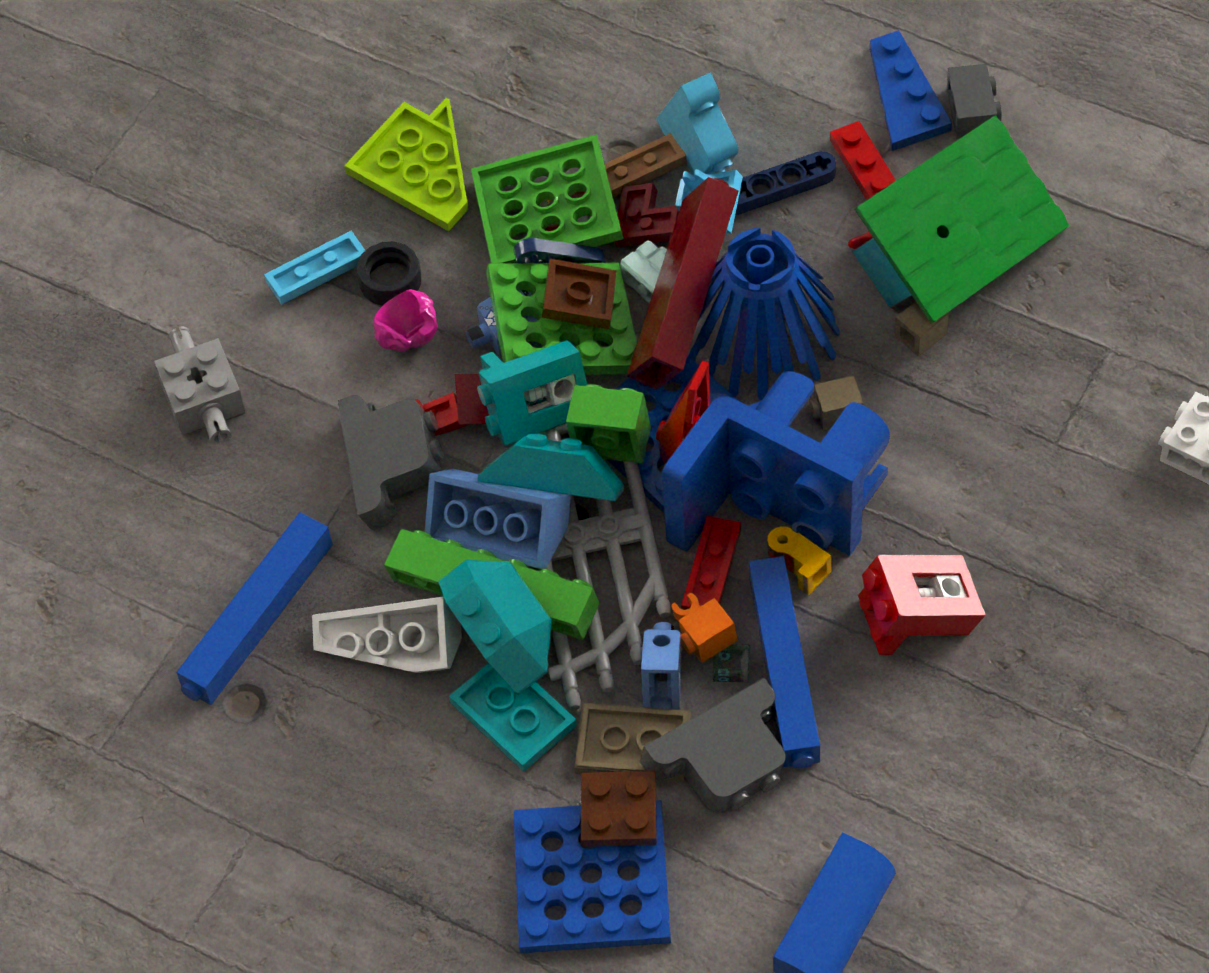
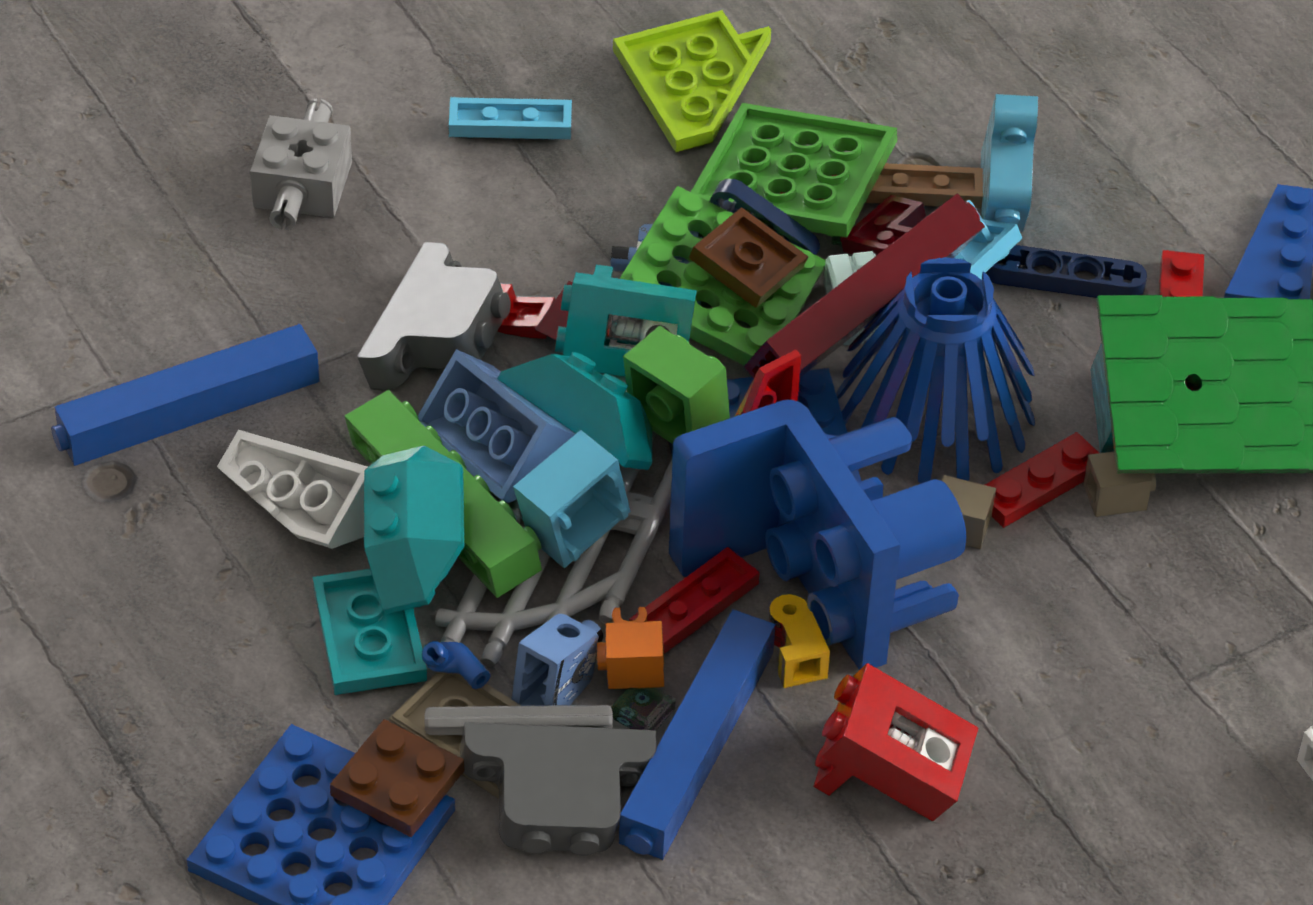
camera: 25 degrees right, 10 degrees down
(387, 253) = (575, 179): black tyre -> none
(405, 321) = (556, 207): dark pink hair -> none
(591, 701) = (457, 659): none -> blue arm
(597, 542) = (573, 498): none -> medium azure container
(664, 720) = (452, 719): none -> light grey axle
(869, 346) = (1040, 479): none -> red plate

